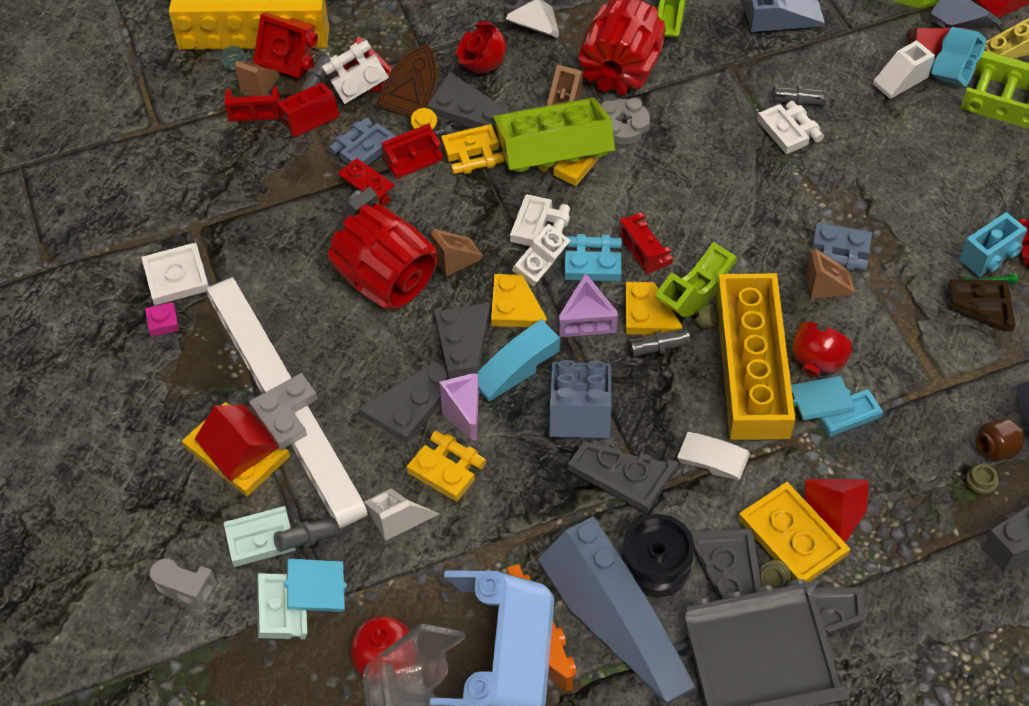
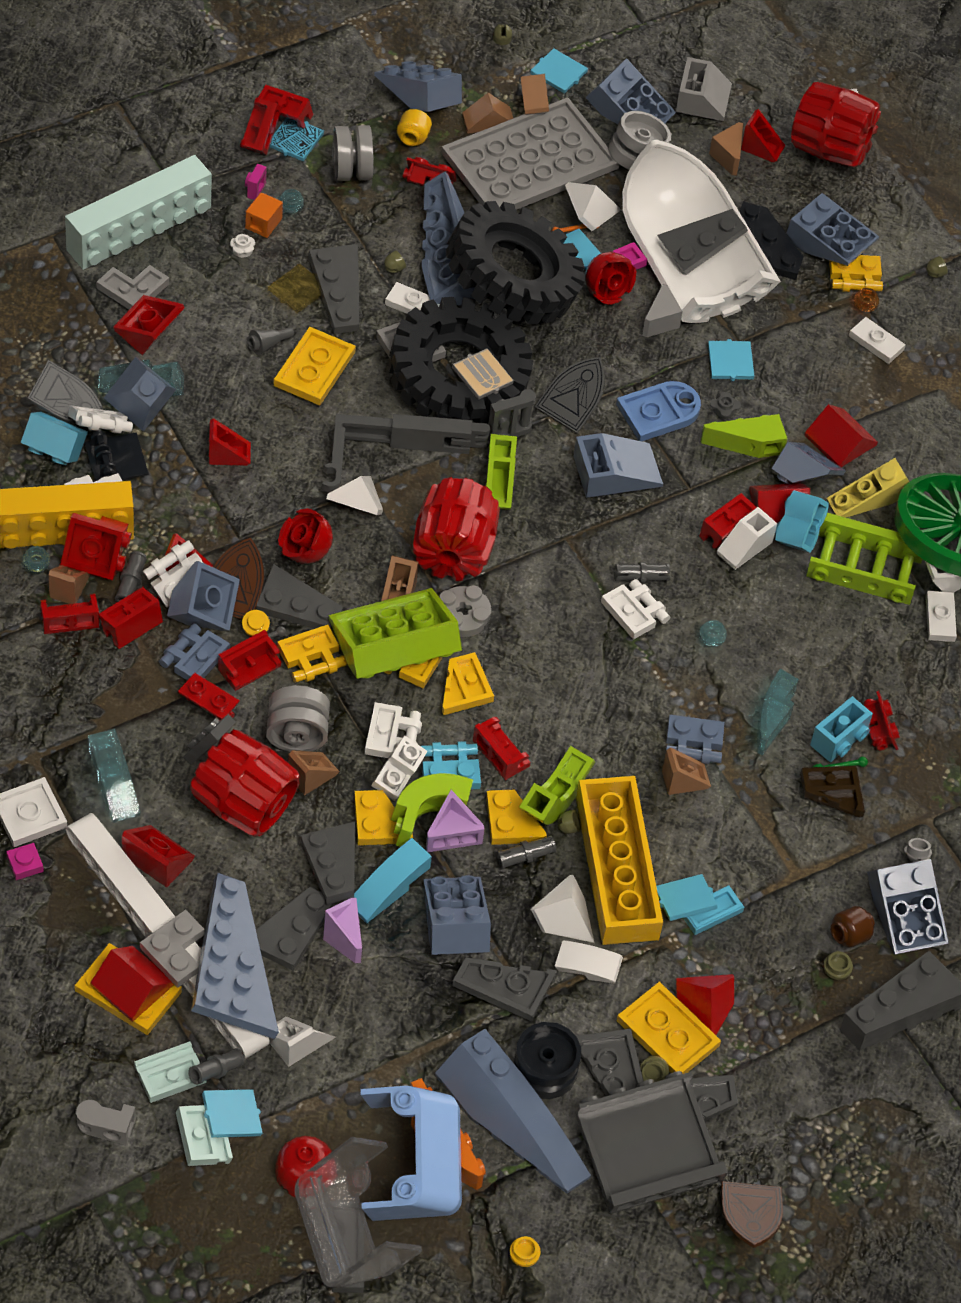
camera: 15 degrees left, 0 degrees up
(262, 245) = (113, 775): none -> clear light blue slope
(288, 319) = (155, 853): none -> red slope
(338, 435) = (231, 968): none -> sand blue wing
(378, 94) = (204, 598): none -> sand blue slope
(442, 473) = (332, 997): yellow plate -> none
(447, 201) = (298, 718): none -> light grey wheel
(559, 283) = (425, 796): none -> lime arch
(616, 185) = (465, 685): none -> yellow wing
(693, 404) = (564, 912): none -> white slope
(820, 350) = (681, 851): red cylinder -> none
(865, 152) = (716, 628): none -> clear light blue plate
(880, 53) = (725, 519): none -> red hinge
(925, 223) = (776, 709): none -> clear light blue slope

